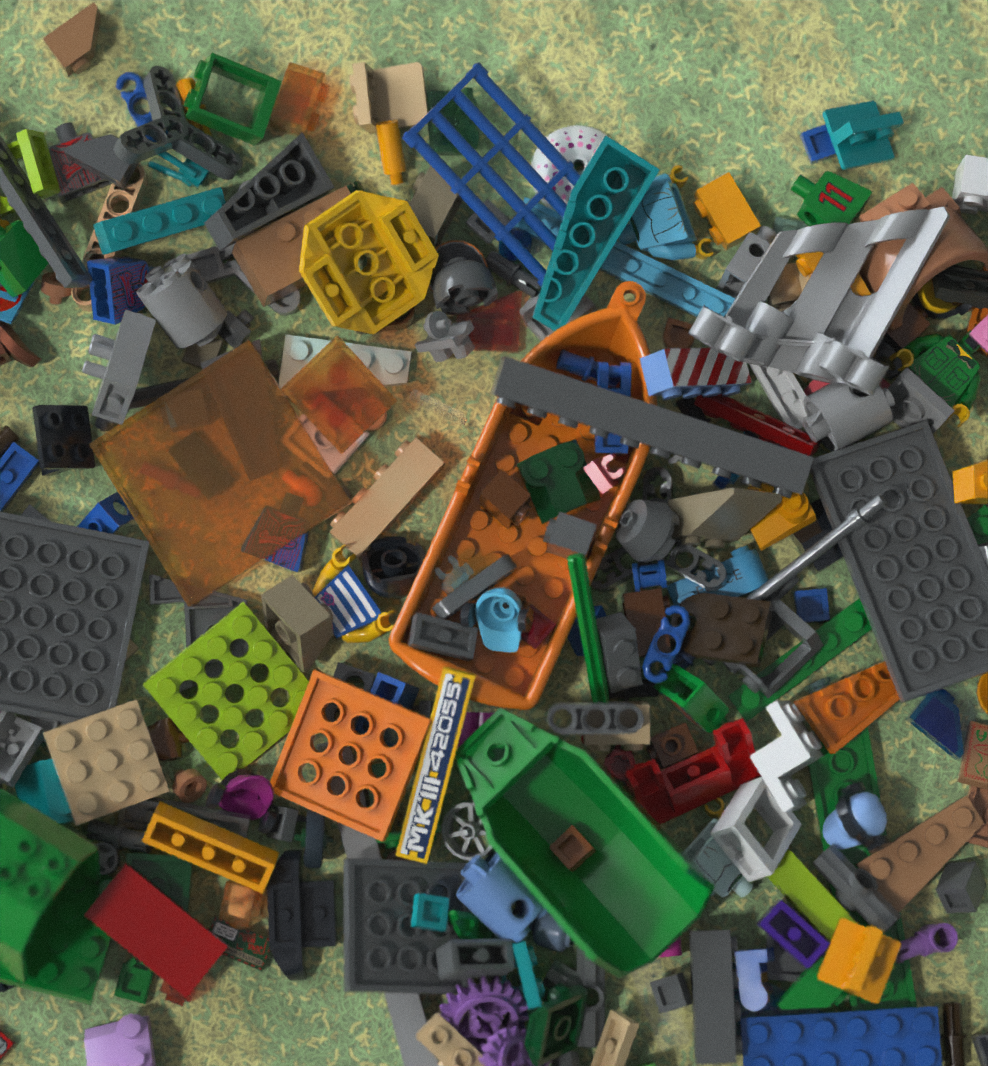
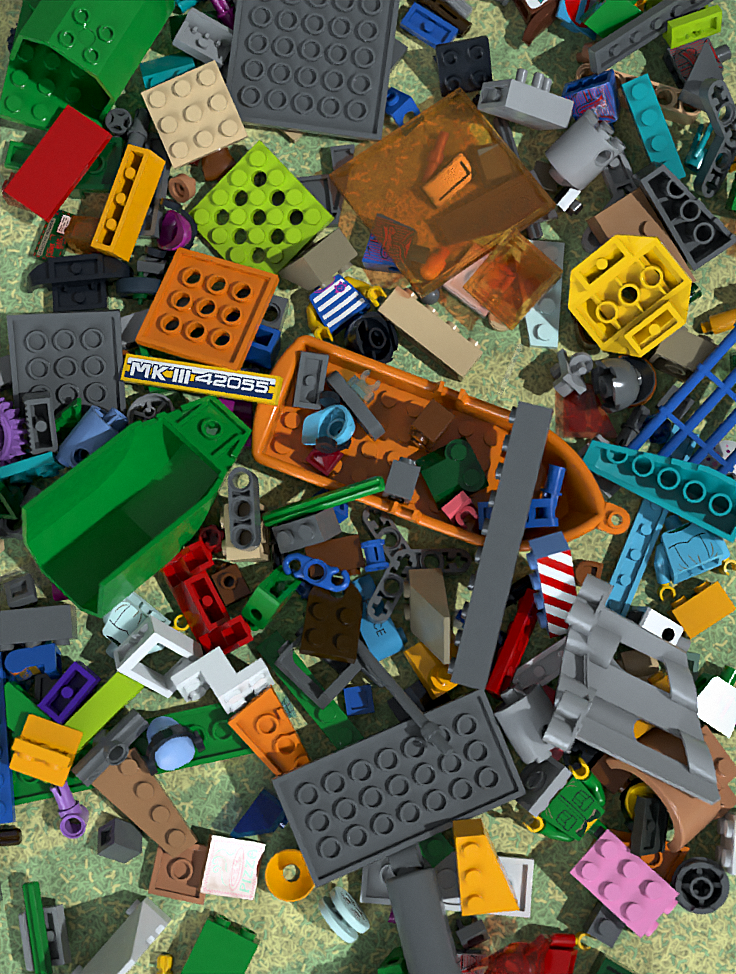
camera: 90 degrees right, 0 degrees up
(430, 912) = (78, 383): teal plate -> none
(572, 848) = (140, 503): dark orange tile -> none
(647, 529) = (413, 548): dark grey cone -> none

